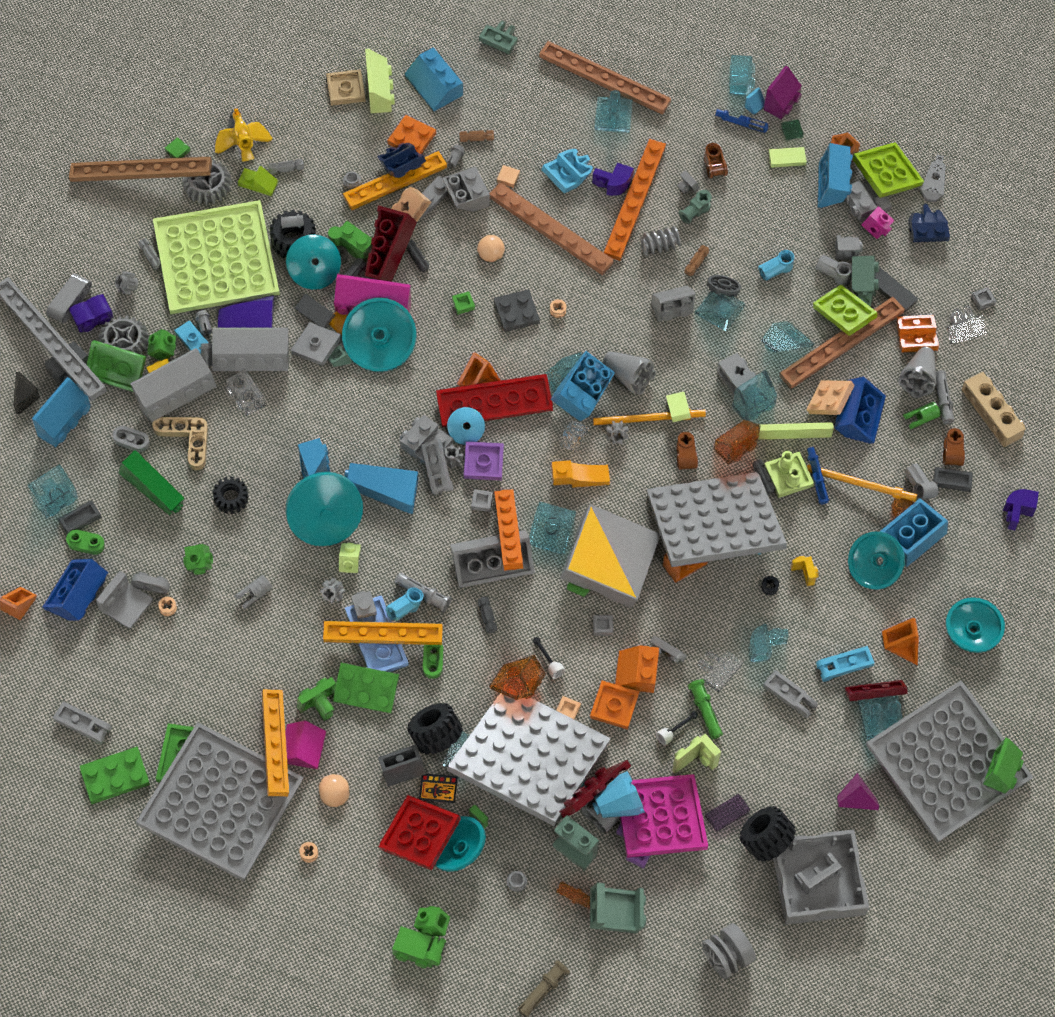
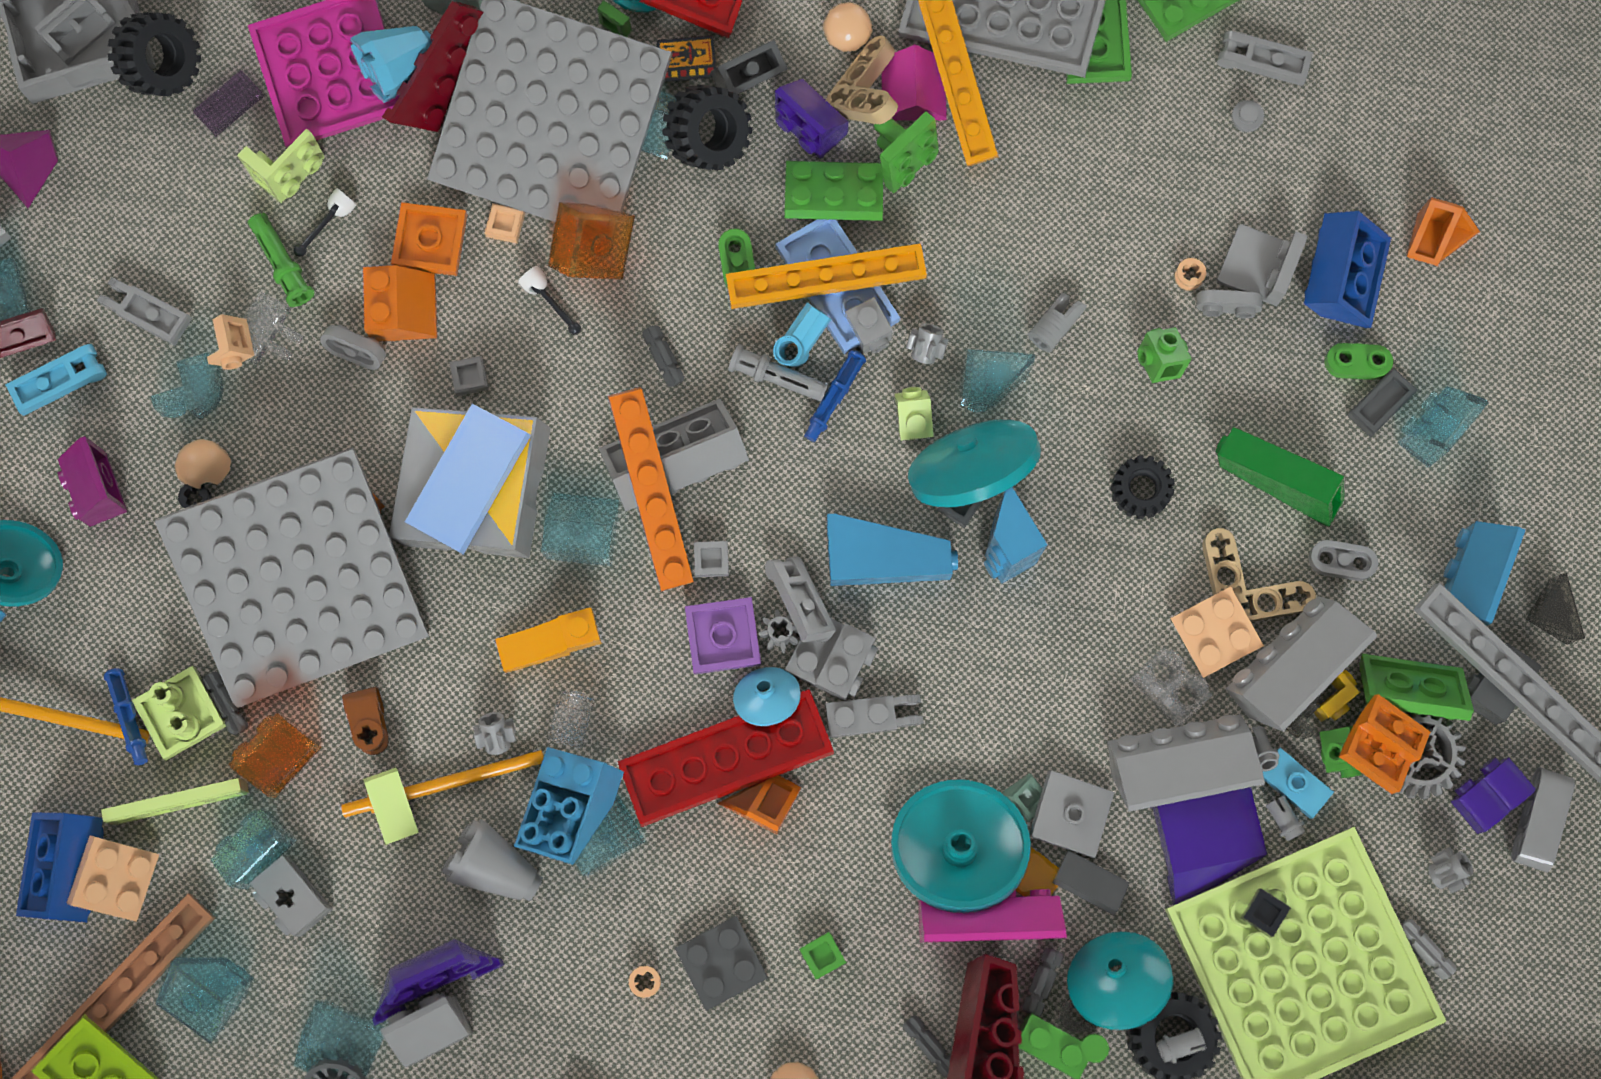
camera: 170 degrees right, 15 degrees up
(104, 690) = (1247, 116): none -> light grey plate
(143, 336) = (1384, 744): none -> orange slope
(212, 414) = (1217, 632): none -> light nougat plate
(229, 276) = (1265, 912): none -> black plate
(299, 563) = (992, 377): none -> clear light blue slope
(338, 744) = (853, 94): none -> tan beam
(370, 730) = (809, 118): none -> dark purple slope
(389, 579) = (835, 394): none -> blue piece
(409, 409) = (869, 715): none -> light grey hinge
(610, 547) = (467, 478): none -> light blue tile
(666, 320) = (430, 972): none -> dark purple wedge
(737, 656) = (233, 342): none -> light nougat bracket
(763, 599) = (202, 463): none -> light nougat hair
(809, 570) = (127, 532): yellow bracket -> none
(827, 597) = (90, 483): none -> magenta slope

